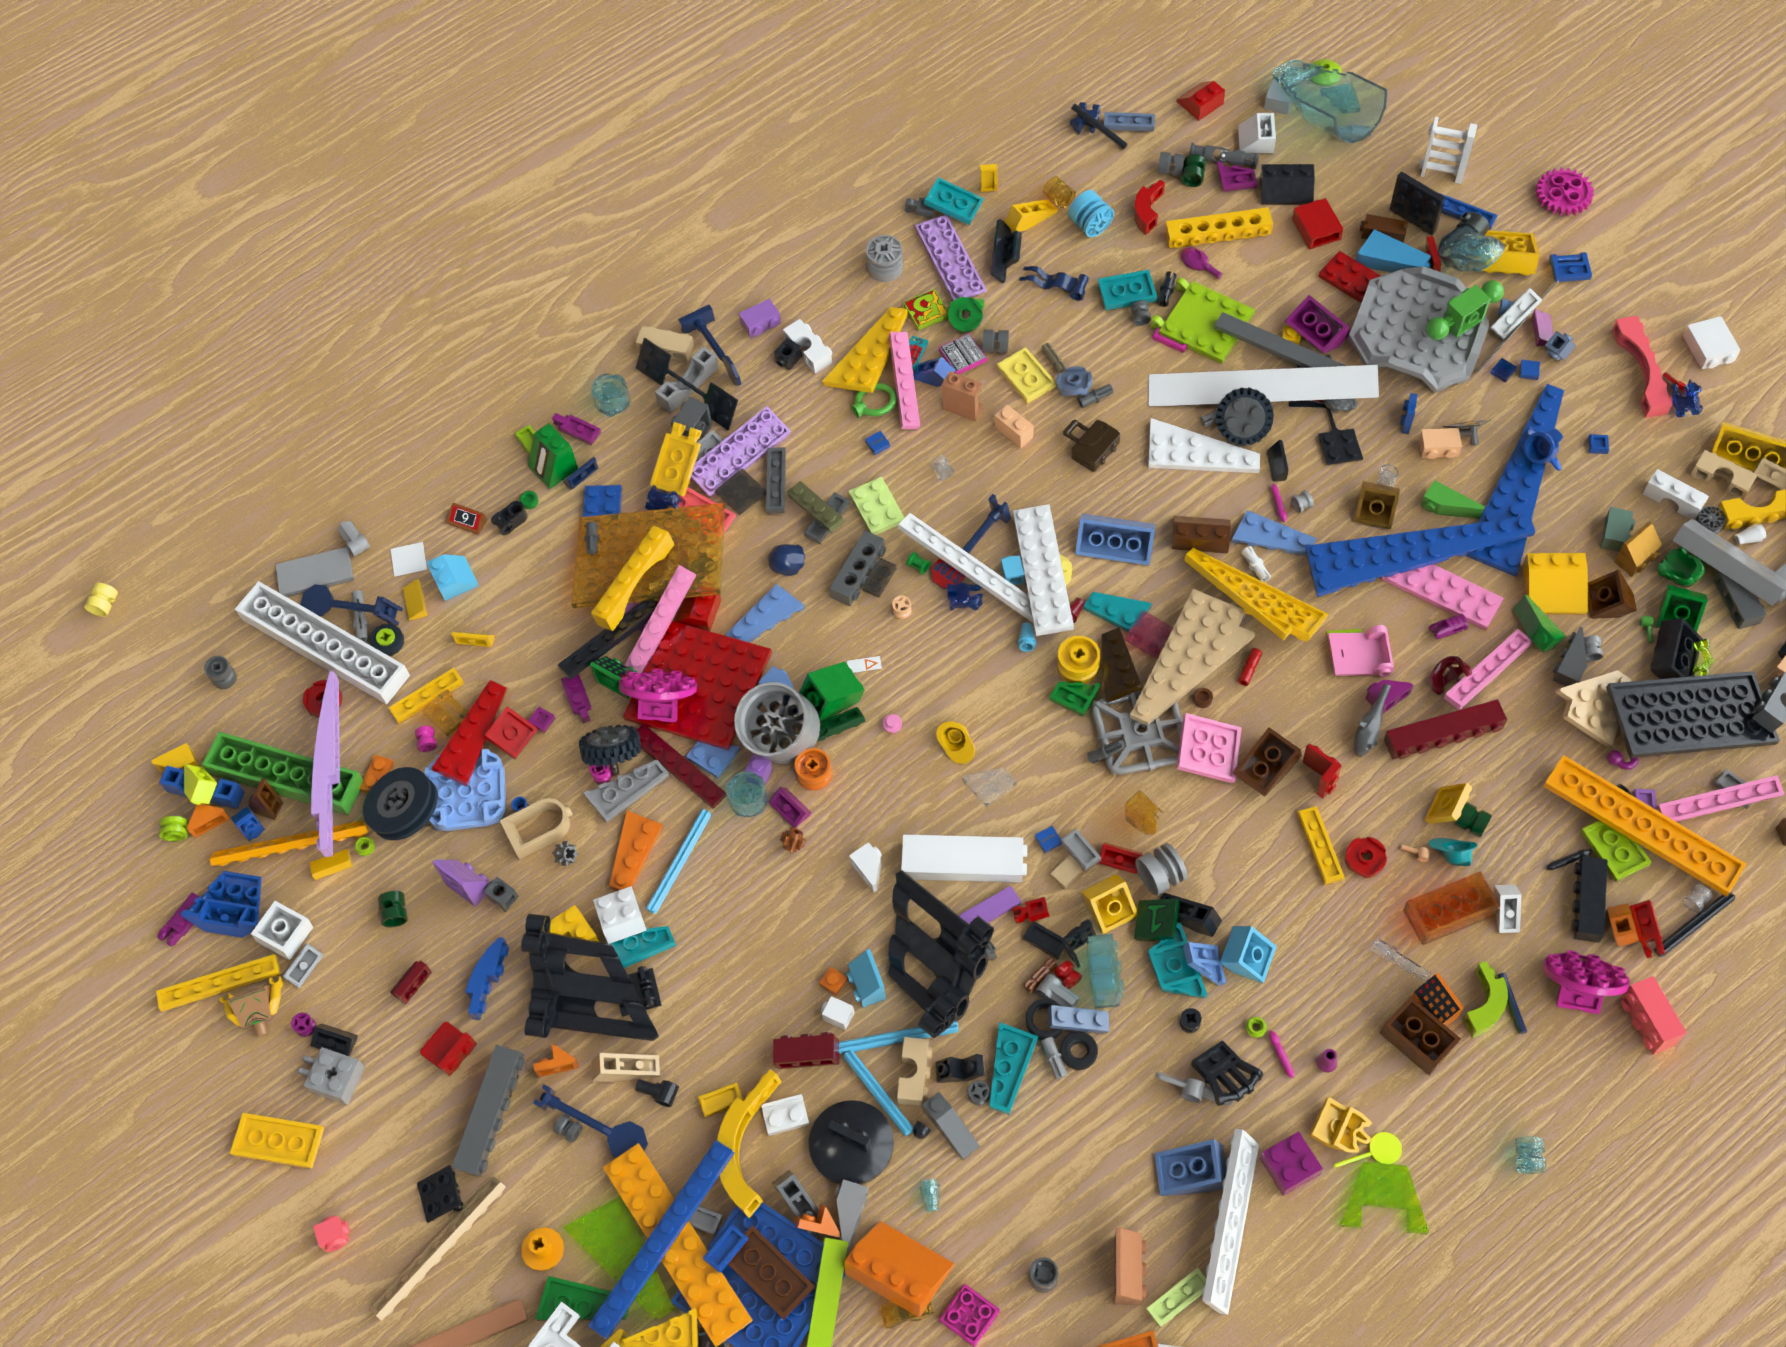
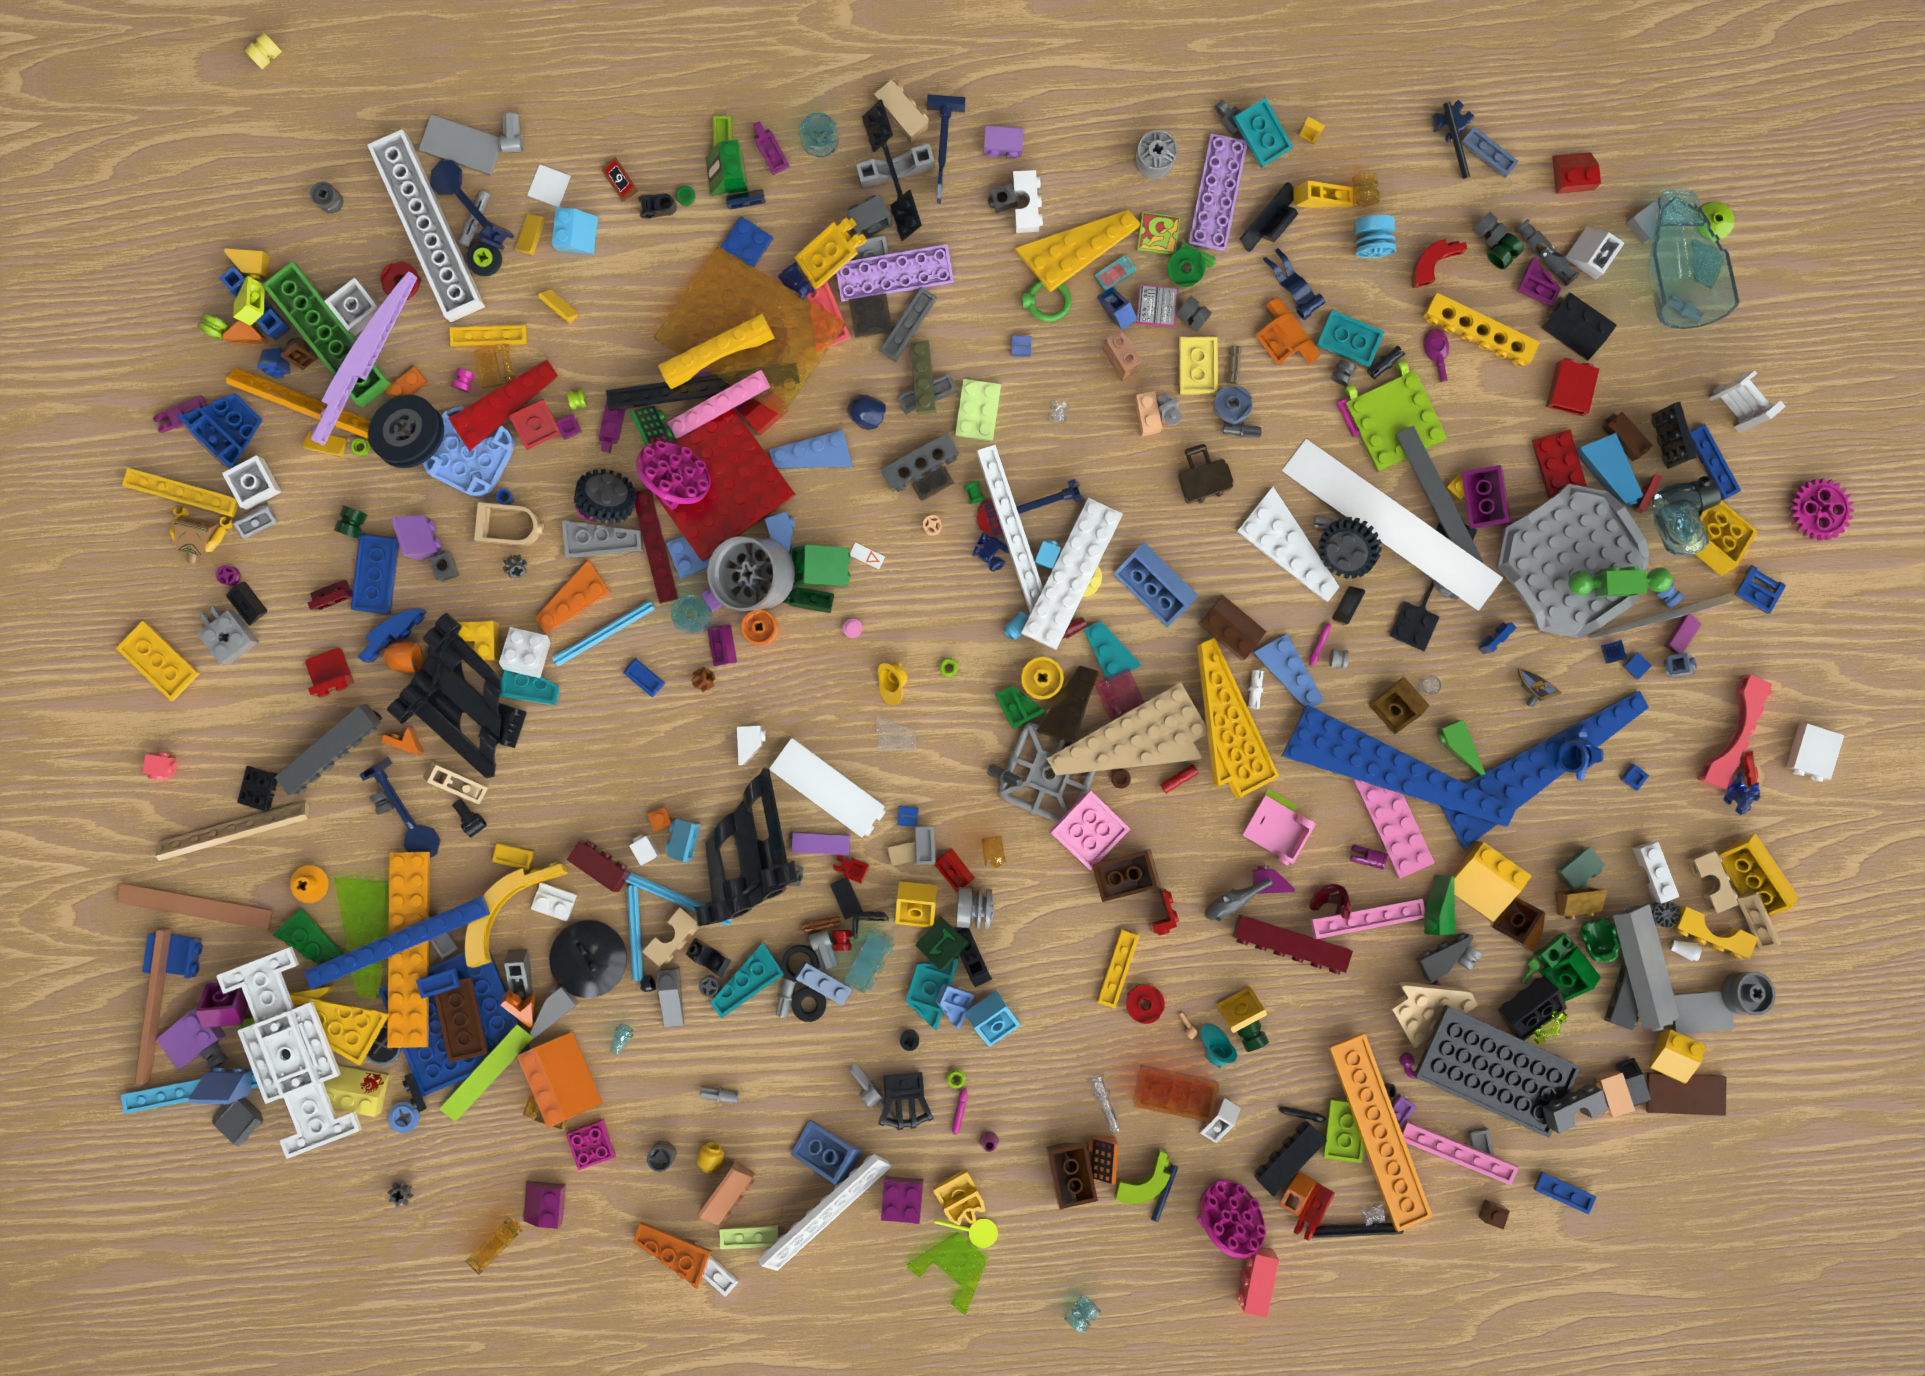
camera: 30 degrees right, 25 degrees up
(294, 734) = (353, 306): none -> white brick
(440, 941) = (375, 574): none -> blue tile
(509, 989) = (399, 656): none -> orange piece
(535, 694) = (577, 399): none -> lime wheel
(591, 538) = (709, 281): dark grey axle -> none
(739, 874) = (644, 677): none -> blue tile
(904, 380) = (1086, 299): bright pink plate -> none
(995, 698) = (948, 673): none -> lime plate
(1027, 409) = (1169, 409): none -> light grey hips
(1057, 1185) = (719, 1095): none -> light grey axle
(1076, 317) = (1285, 335): none -> orange plate
(1089, 1246) = (710, 1157): none -> yellow head
(1440, 443) = (1499, 685): light nougat brick -> none
(1516, 314) = (1668, 607): white tile -> none
(1653, 600) = (1555, 950): none -> green leg

